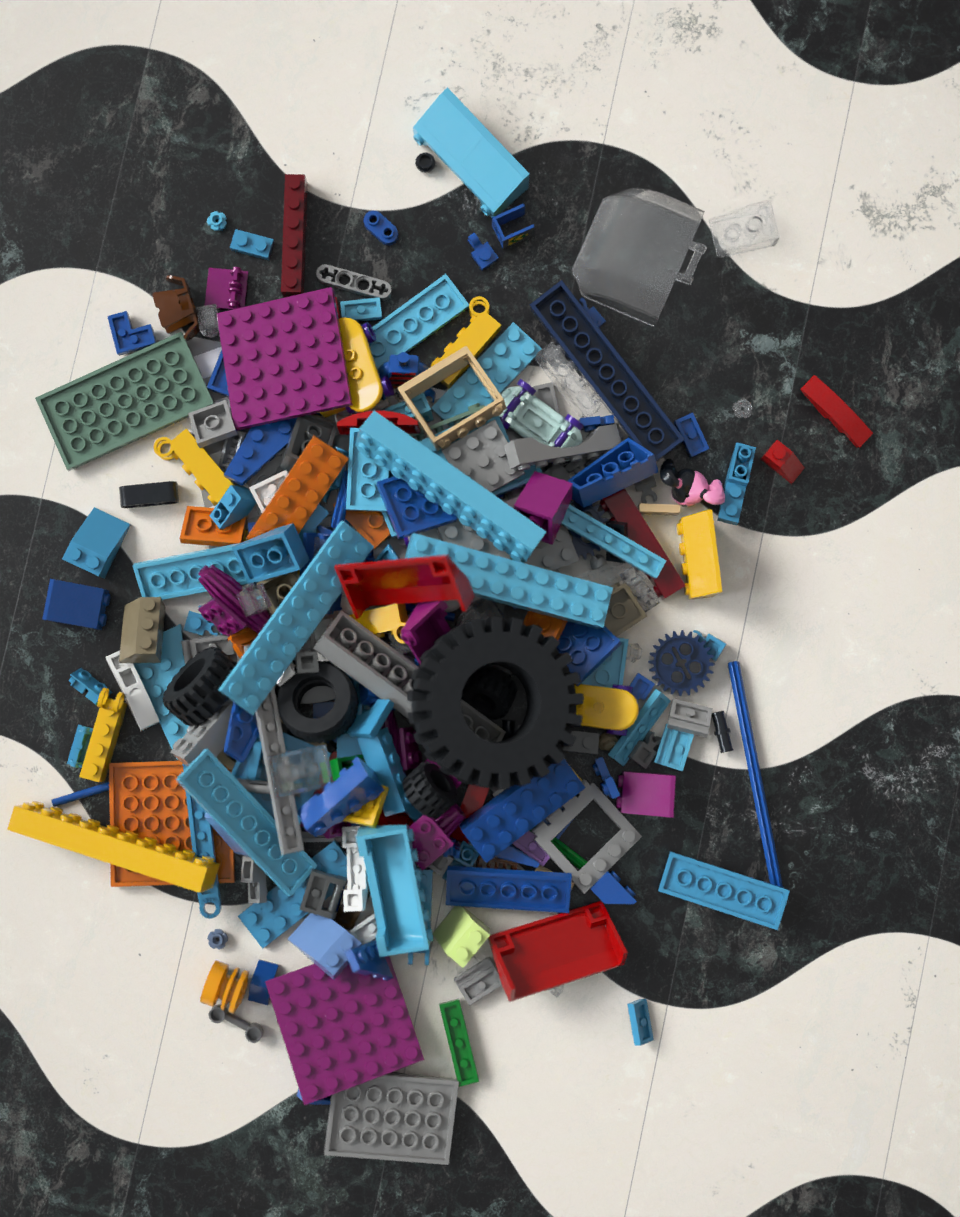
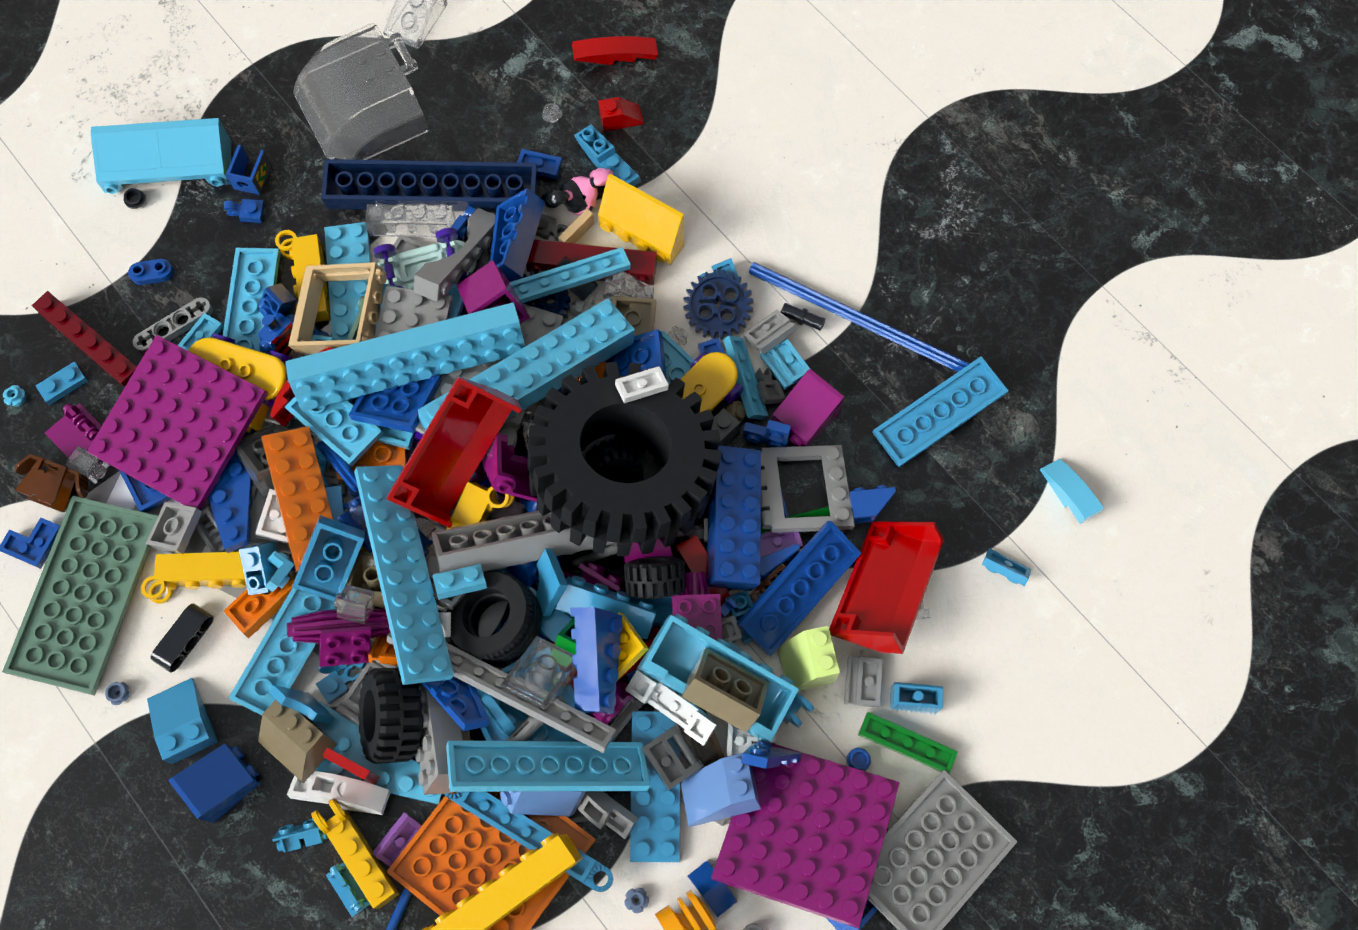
camera: 50 degrees left, 15 degrees down
(77, 484) = (111, 692): none -> sand blue plate
(134, 752) = (396, 839): none -> medium lavender plate
(151, 687) = (351, 766): none -> red tile
(168, 617) = (303, 703): none -> dark azure tile
(234, 529) = (280, 577): none -> medium azure bracket
(319, 662) = (459, 581): none -> medium azure plate
(390, 900) = (726, 690): none -> dark tan slope
(422, 1017) = (858, 759): none -> blue plate
(425, 345) = (276, 300): none -> blue slope
(493, 1027) = (916, 697): none -> dark azure brick
(554, 677) = (641, 384): none -> white plate
(736, 1028) = (1072, 490): none -> medium azure slope

